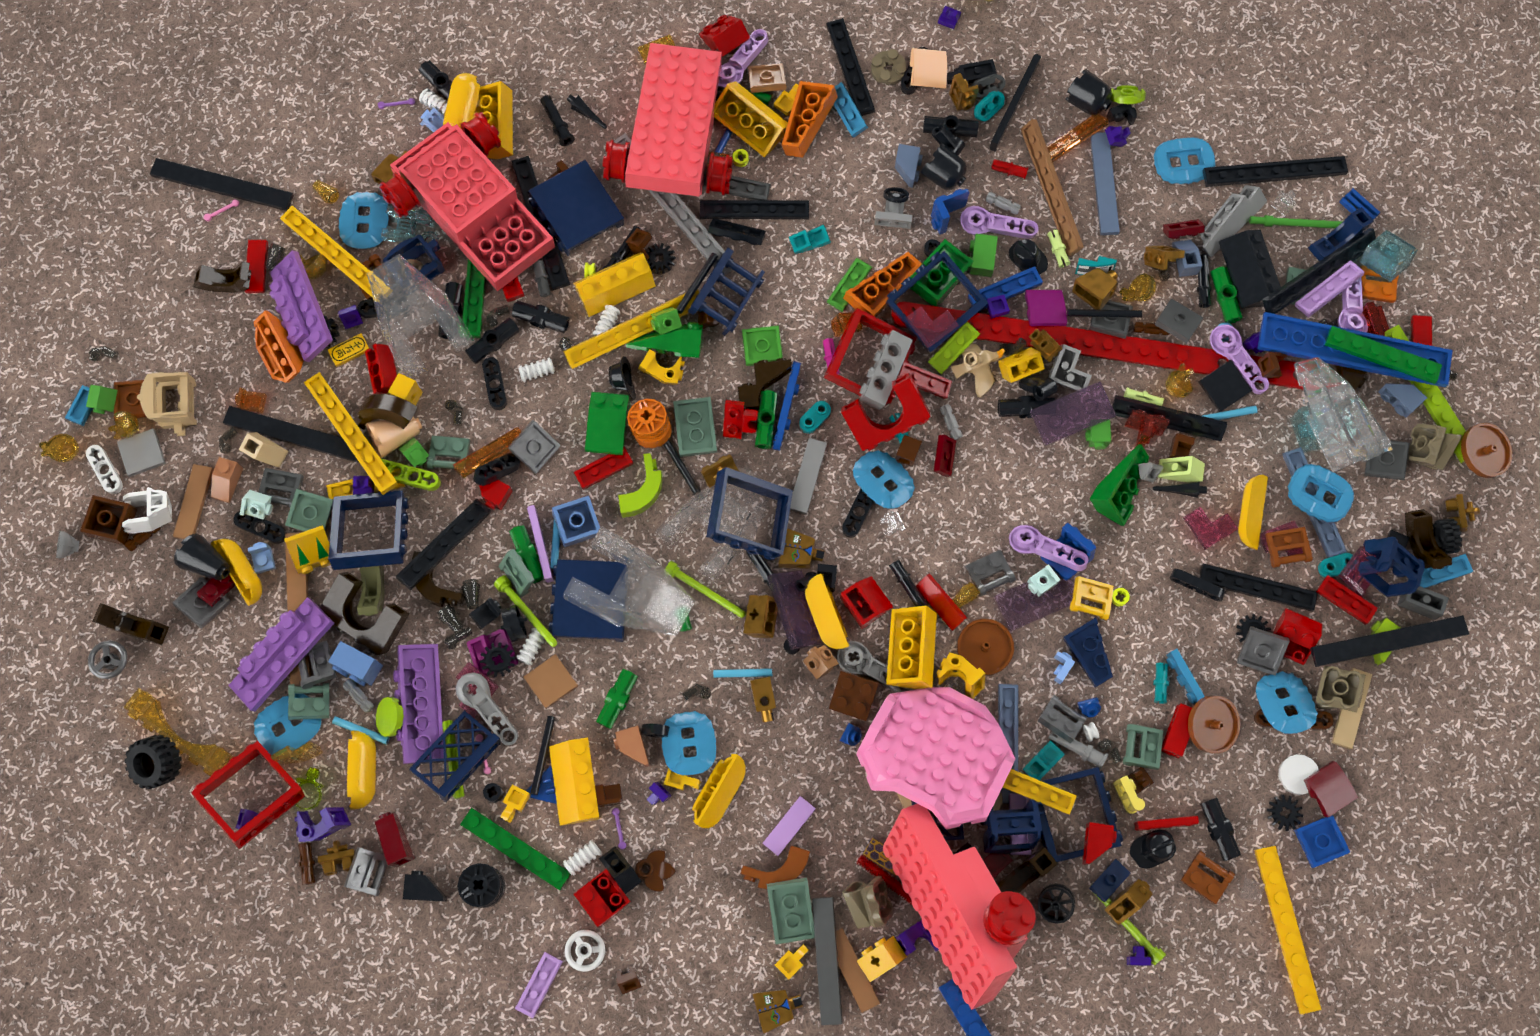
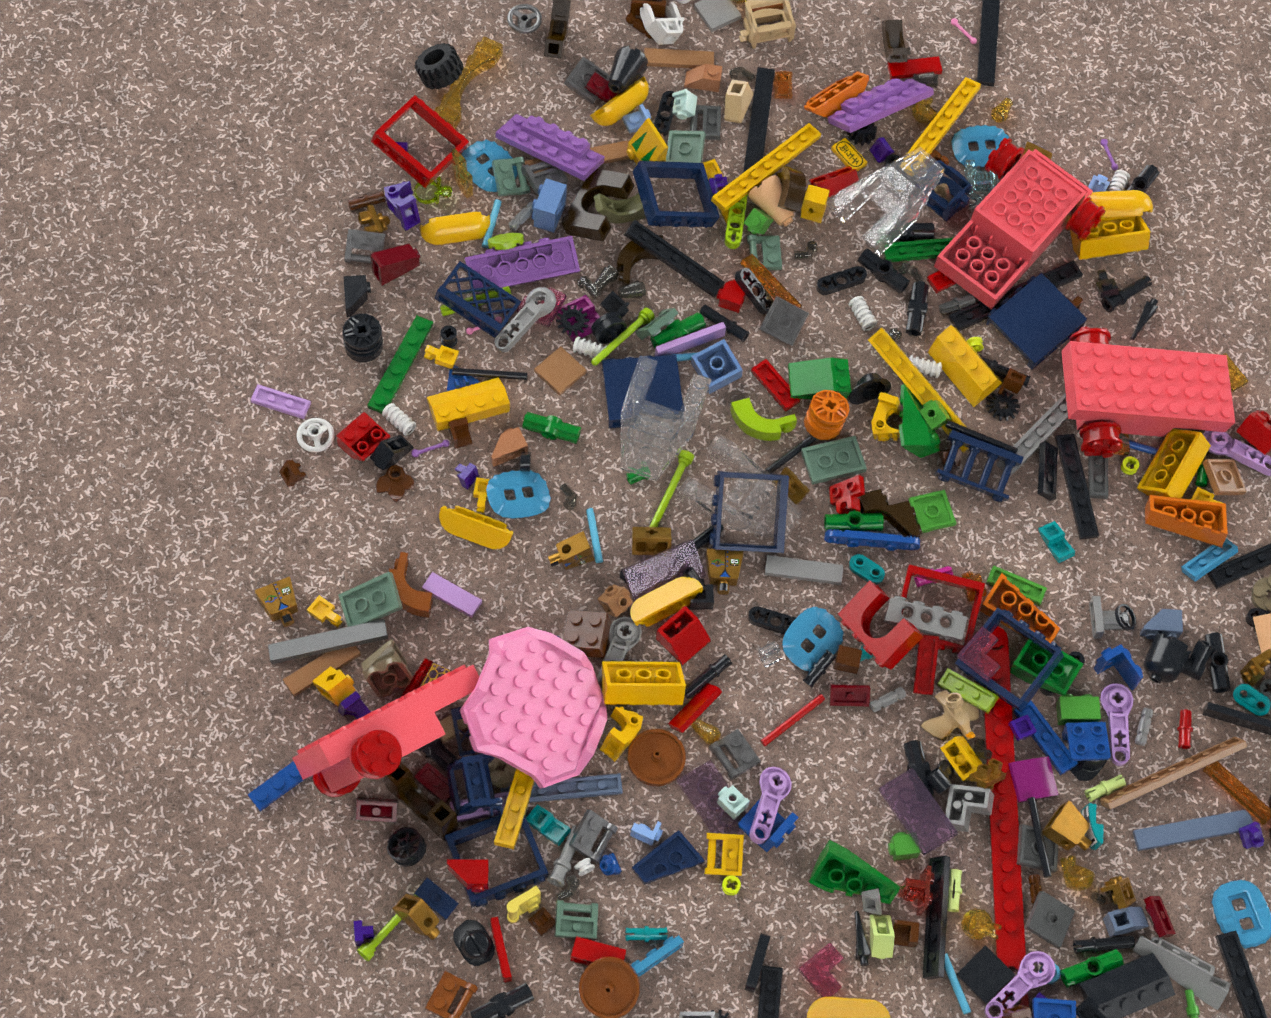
camera: 75 degrees right, 10 degrees down
(521, 508) = (731, 327): none -> black axle
(548, 137) = (1105, 286): none -> black plate
(915, 478) = (819, 668): none -> black pin
(961, 513) = (792, 720): none -> red bar
(1018, 252) = (1087, 741): none -> blue bracket

